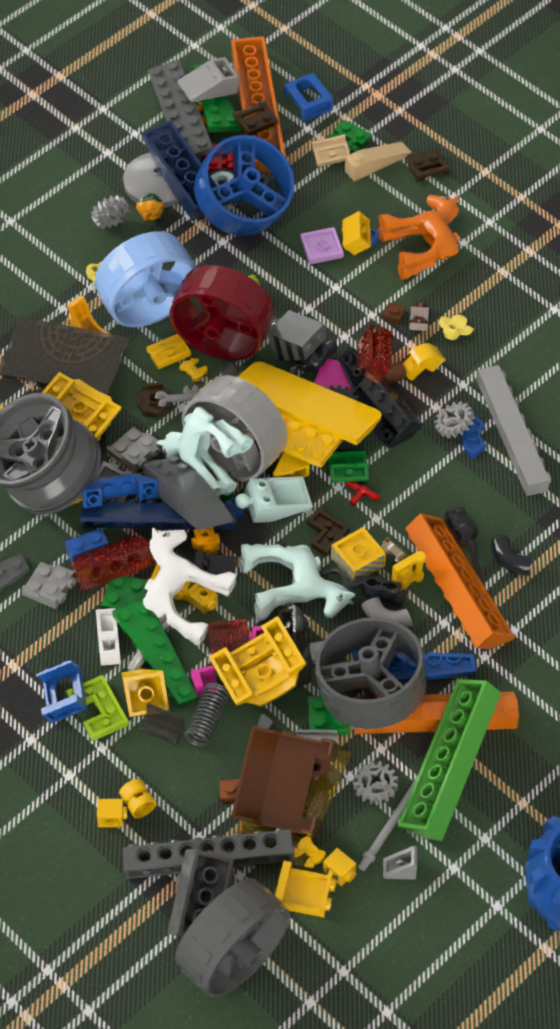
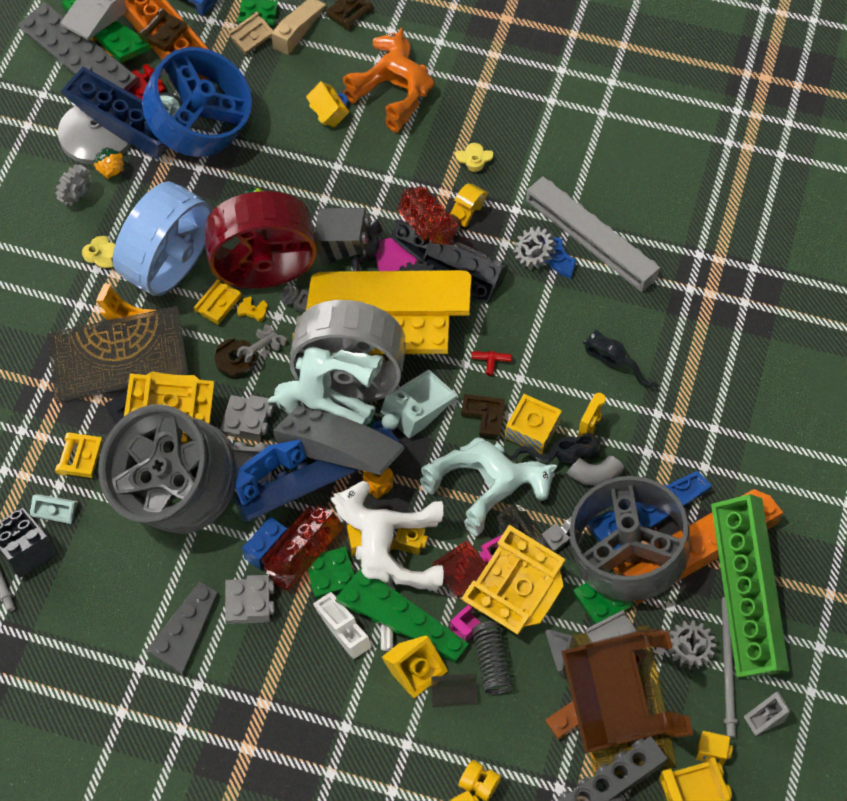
camera: 30 degrees left, 5 degrees up
(55, 709) = (313, 700): blue panel -> none
(111, 714) = (397, 706): lime plate -> none
(215, 563) = (402, 497): black bracket -> none
(291, 467) = (414, 366): yellow slope -> none
(315, 856) = (683, 748): yellow piece -> none
(321, 245) = (300, 130): lavender plate -> none
(348, 466) = (467, 340): green slope -> none
(394, 313) = (409, 168): reddish brown plate -> none
(394, 550) = (567, 402): dark tan plate -> none
(419, 316) = (435, 162): slope -> none
(459, 582) = (639, 406): orange slope -> none
(508, 558) = (667, 360): black cylinder -> none

